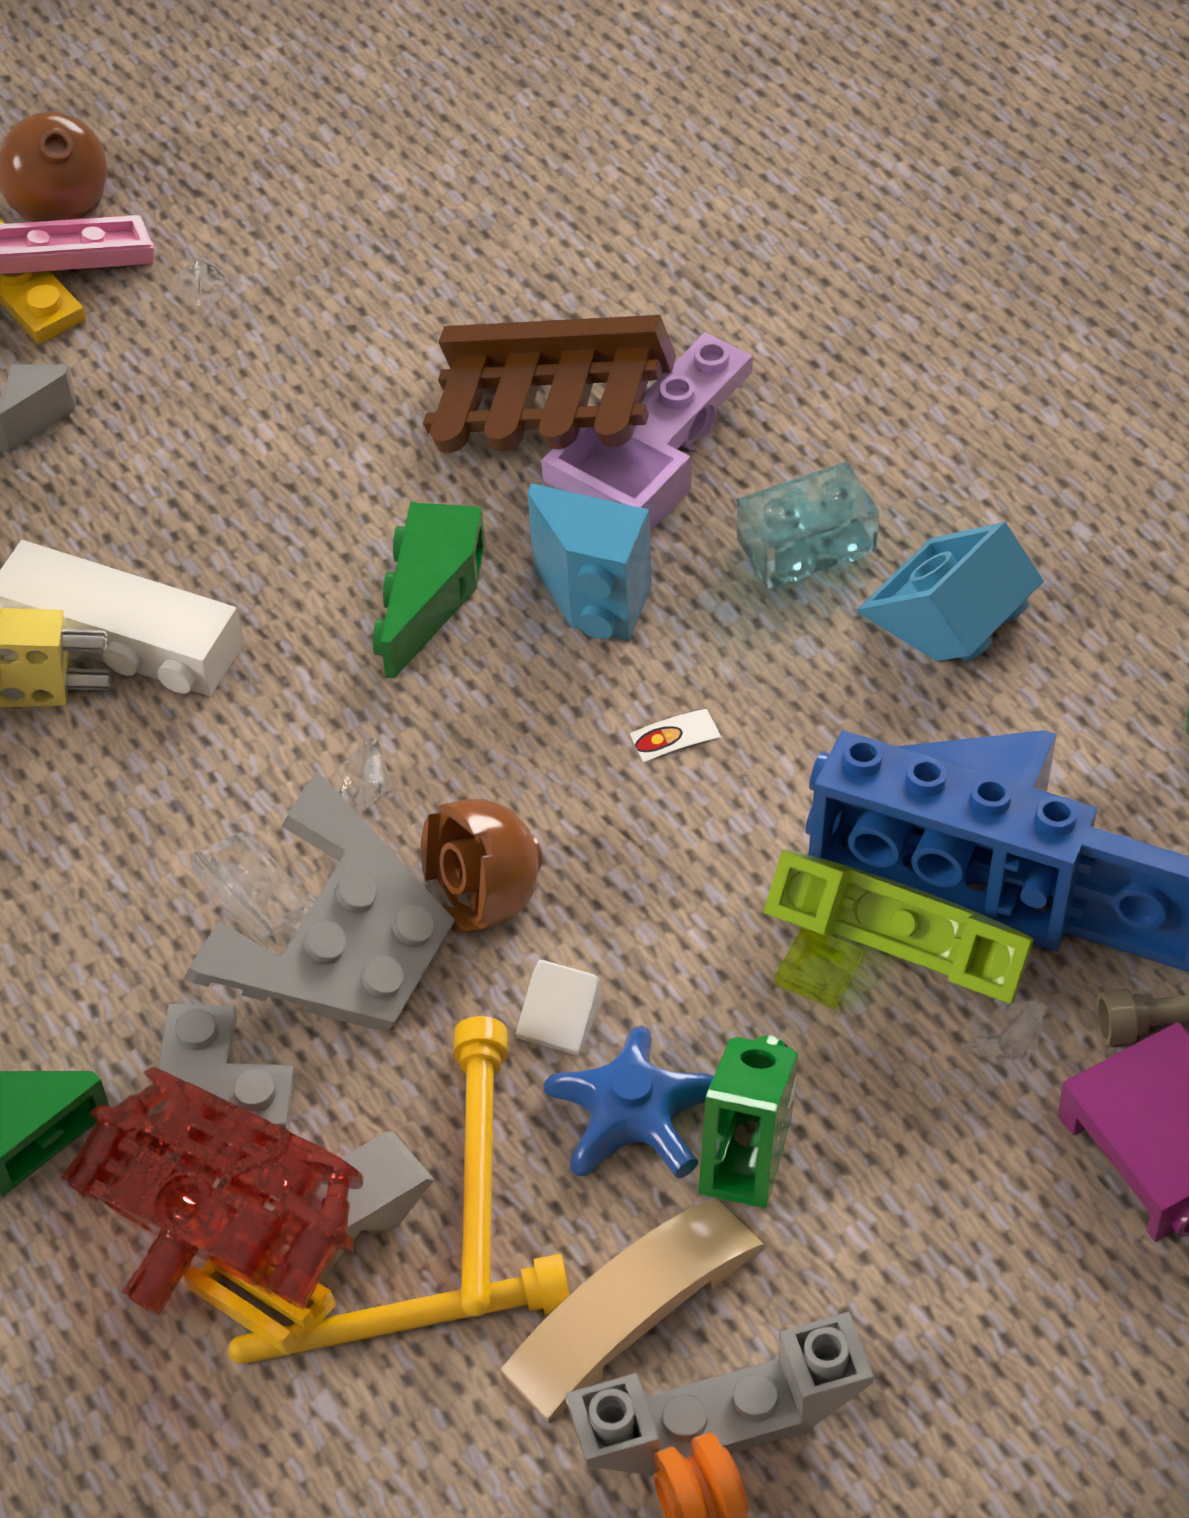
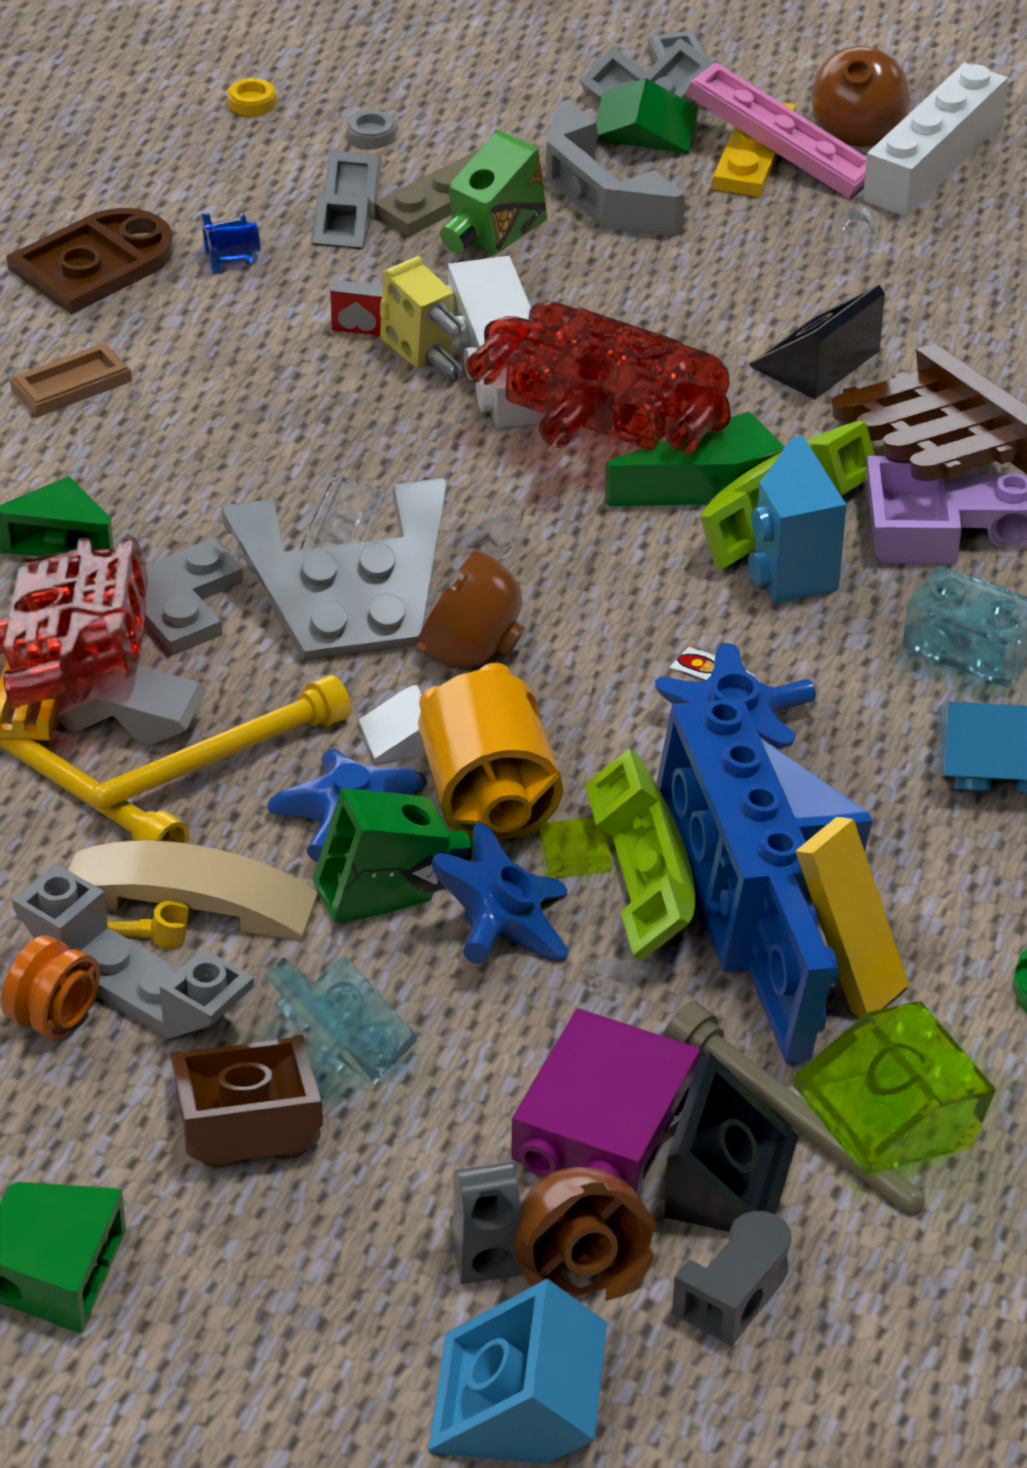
camera: 50 degrees right, 10 degrees down
(159, 158) = (935, 139): none -> white brick
(289, 574) = (604, 377): none -> clear red piece
(342, 399) = (827, 345): none -> black slope
(508, 541) = (728, 514): none -> lime slope
(662, 1355) = (165, 928): none -> yellow hand
(694, 959) = (489, 753): none -> light orange cylinder
(756, 744) = (732, 682): none -> blue animal
(866, 1061) = (500, 899): none -> blue animal
(918, 1265) = (346, 1015): none -> clear light blue bracket
(962, 1405) = (248, 1101): none -> reddish brown slope
(1114, 800) = (852, 916): none -> yellow tile

